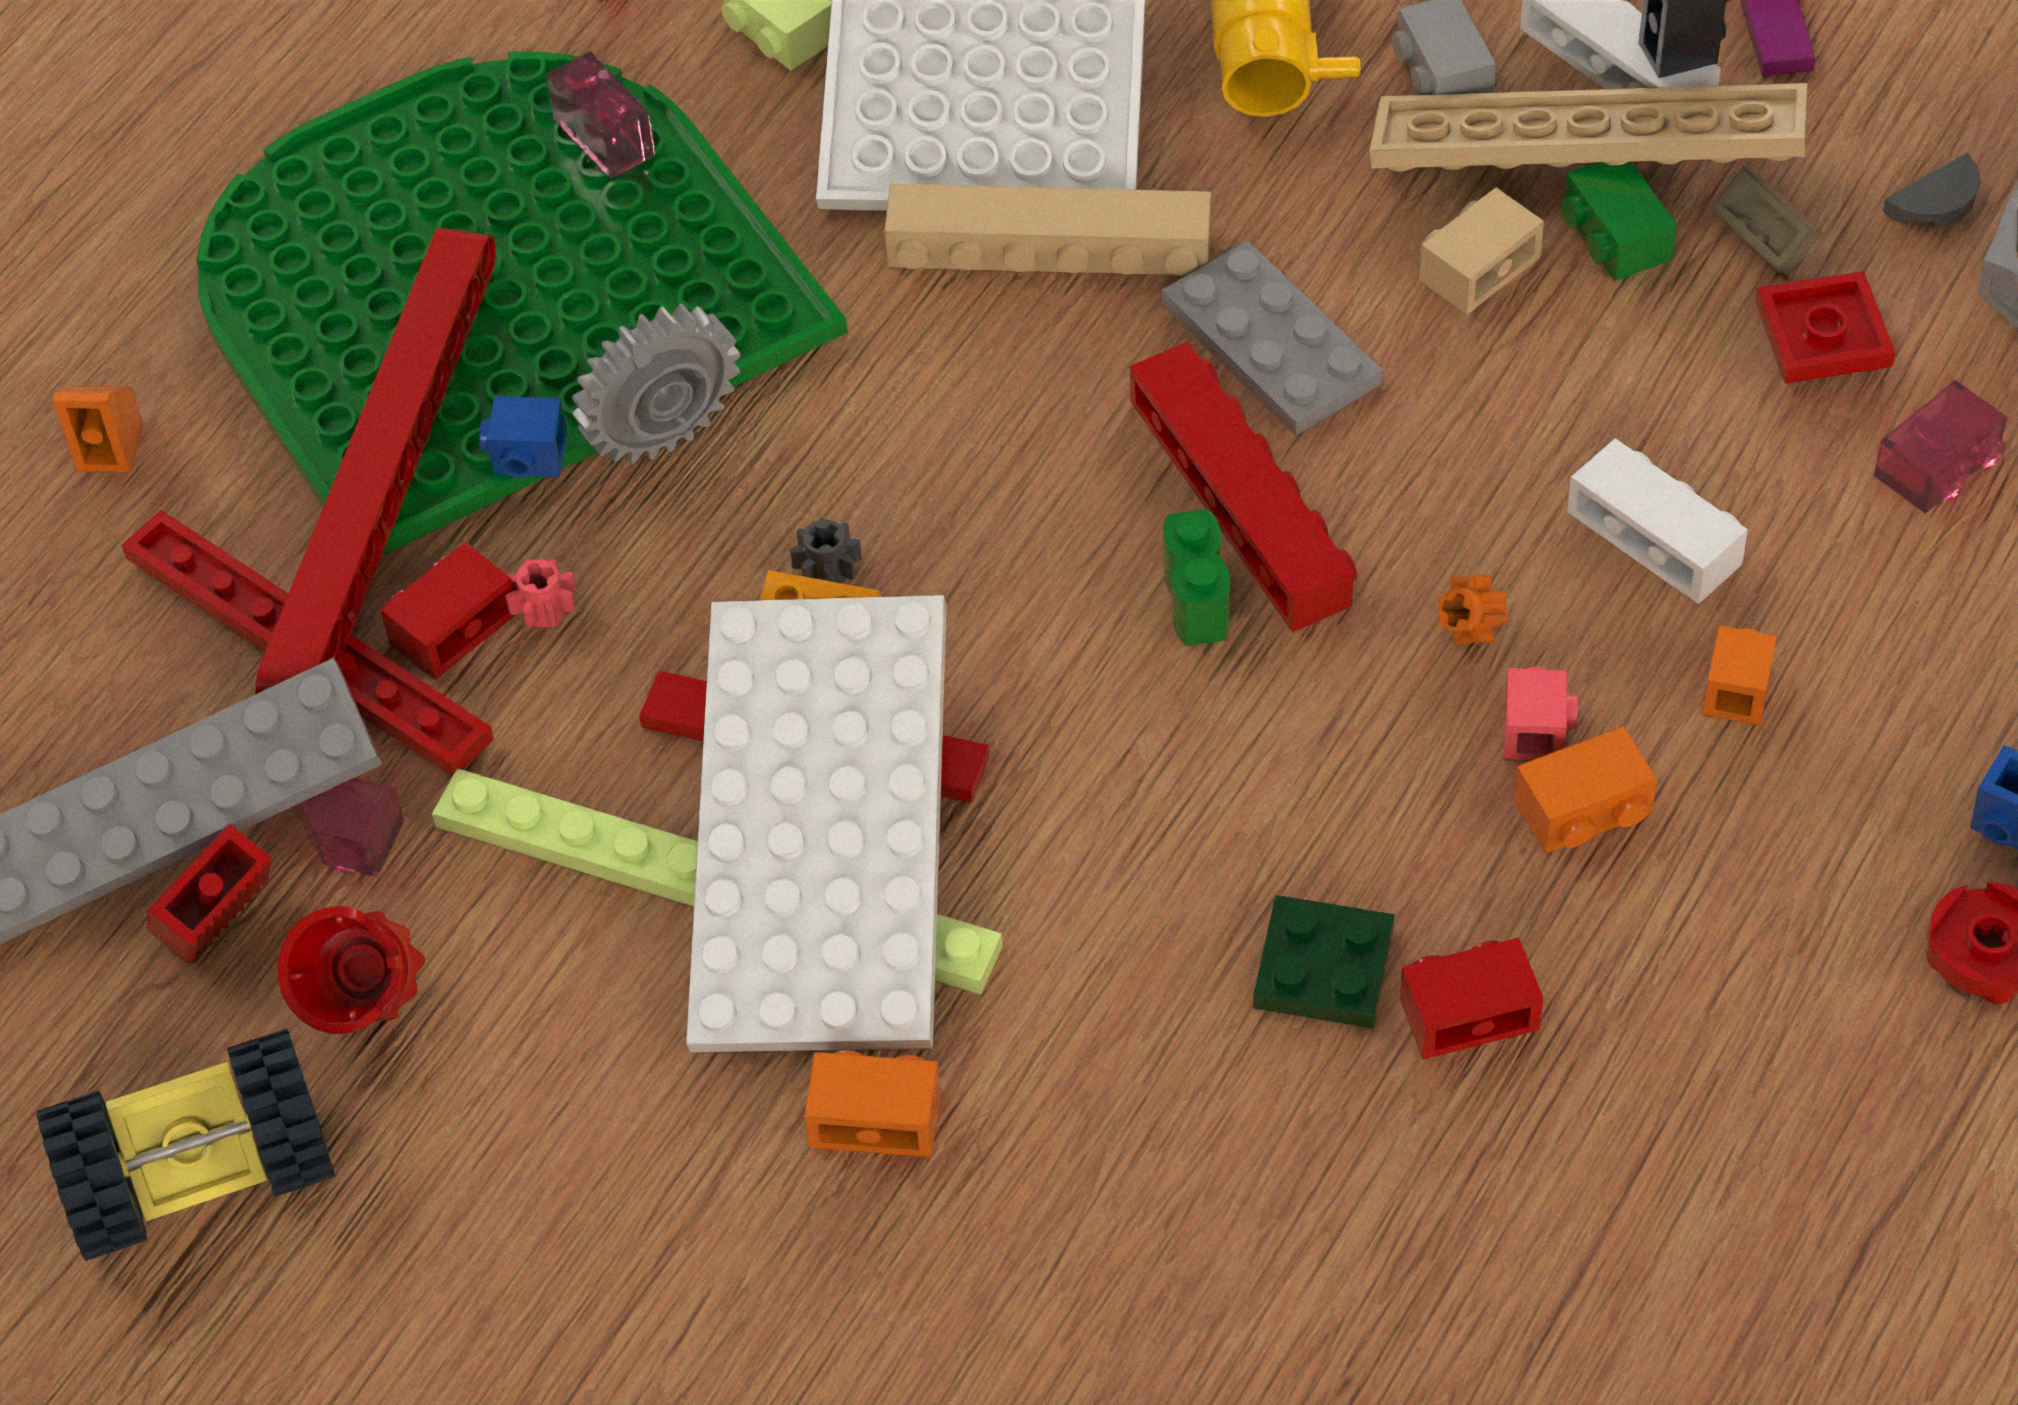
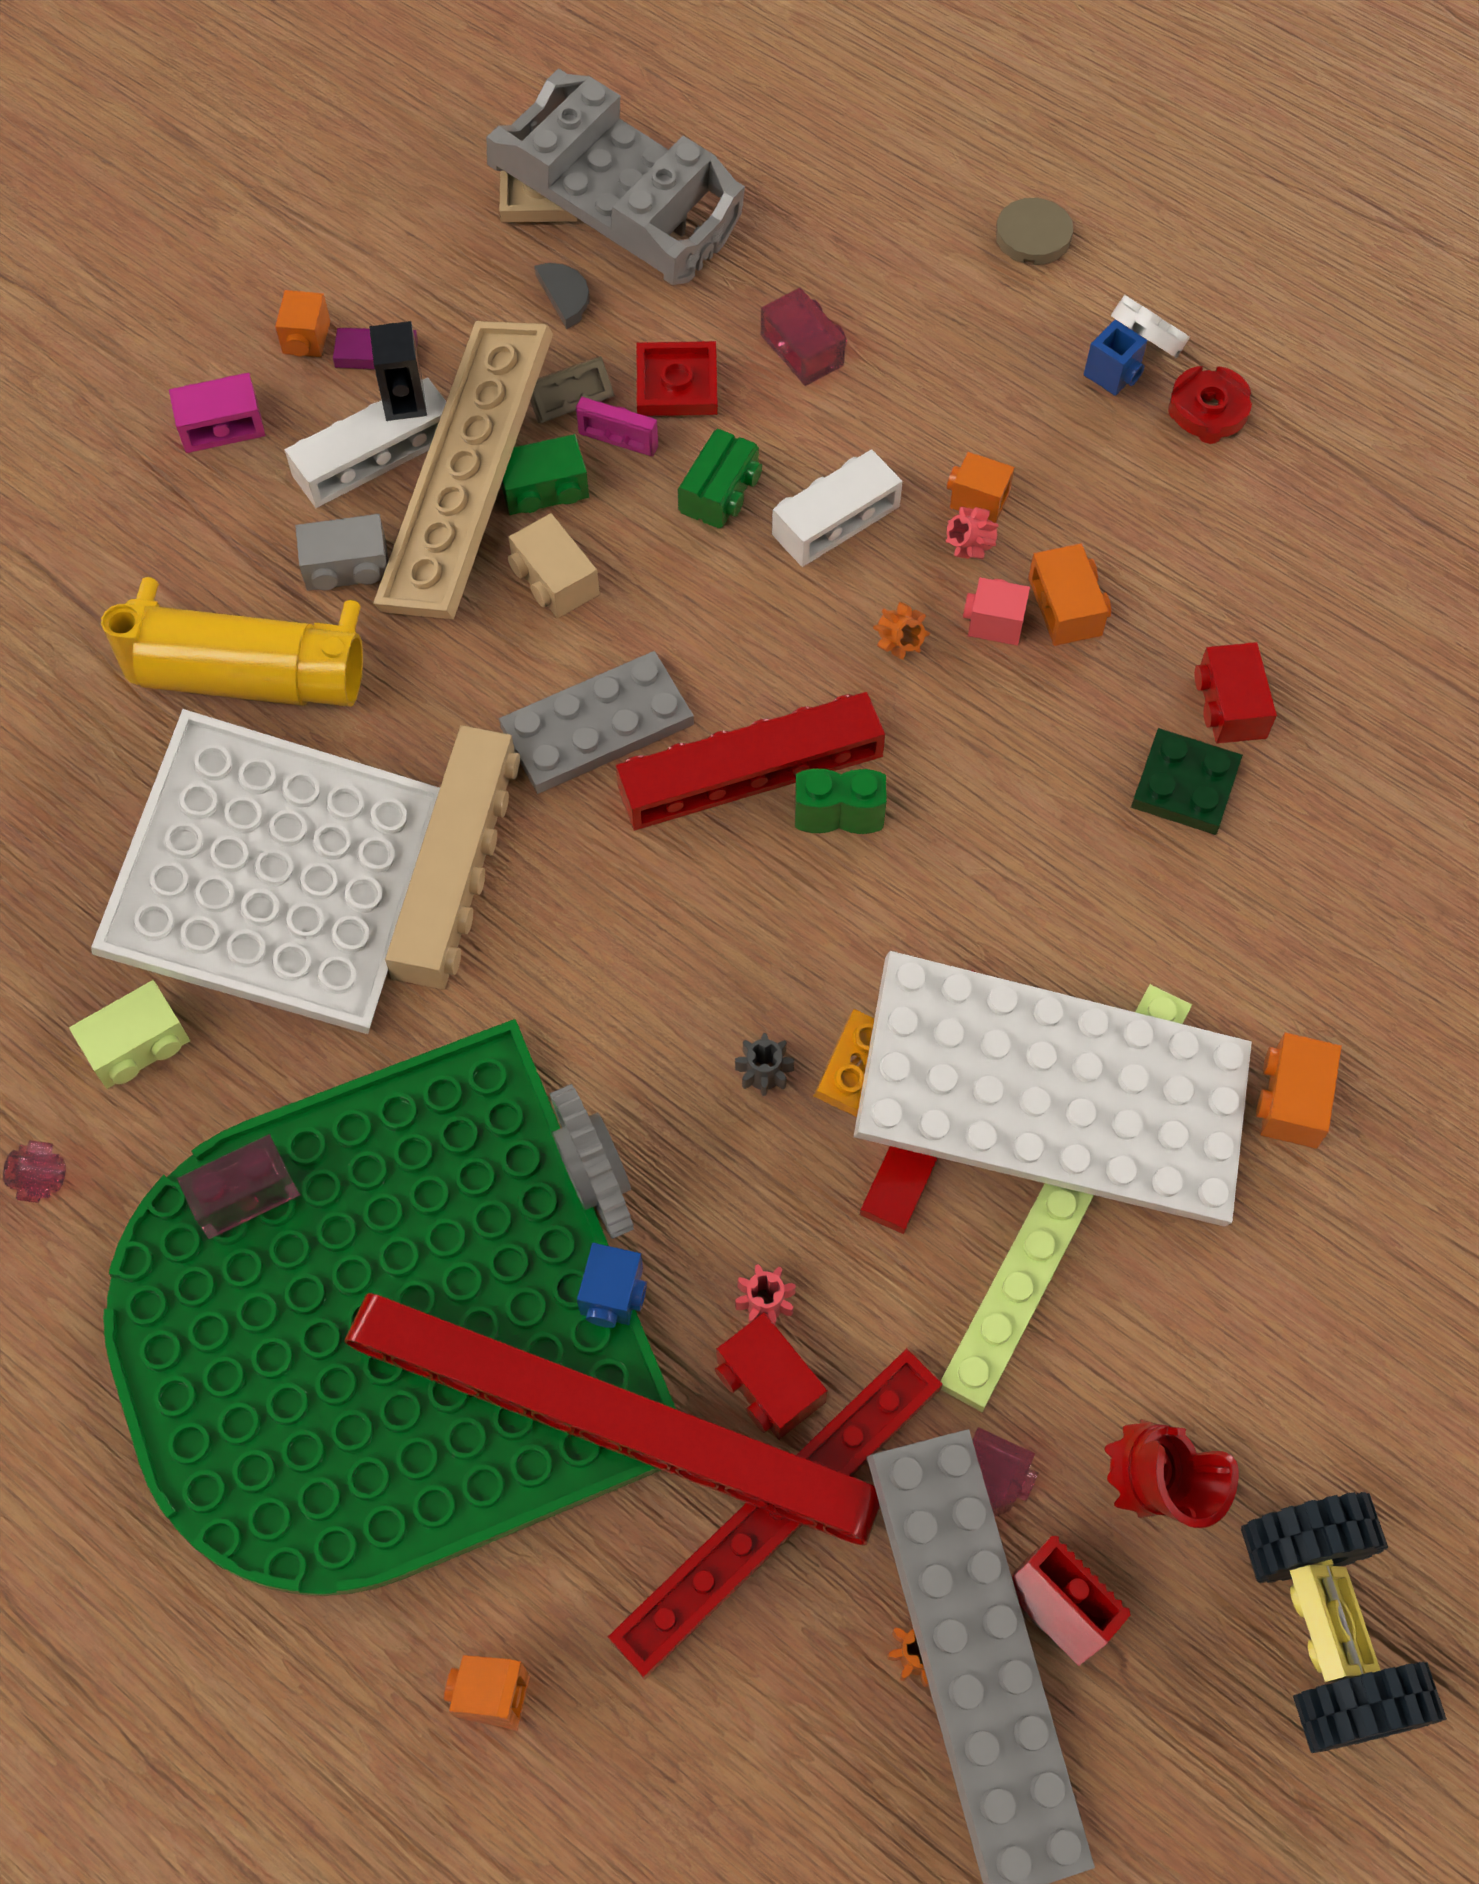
camera: 85 degrees left, 10 degrees up
(1654, 668) = (971, 533): none -> coral gear
(1667, 391) = (719, 478): none -> green brick
(1722, 276) = (617, 426): none -> dark pink plate

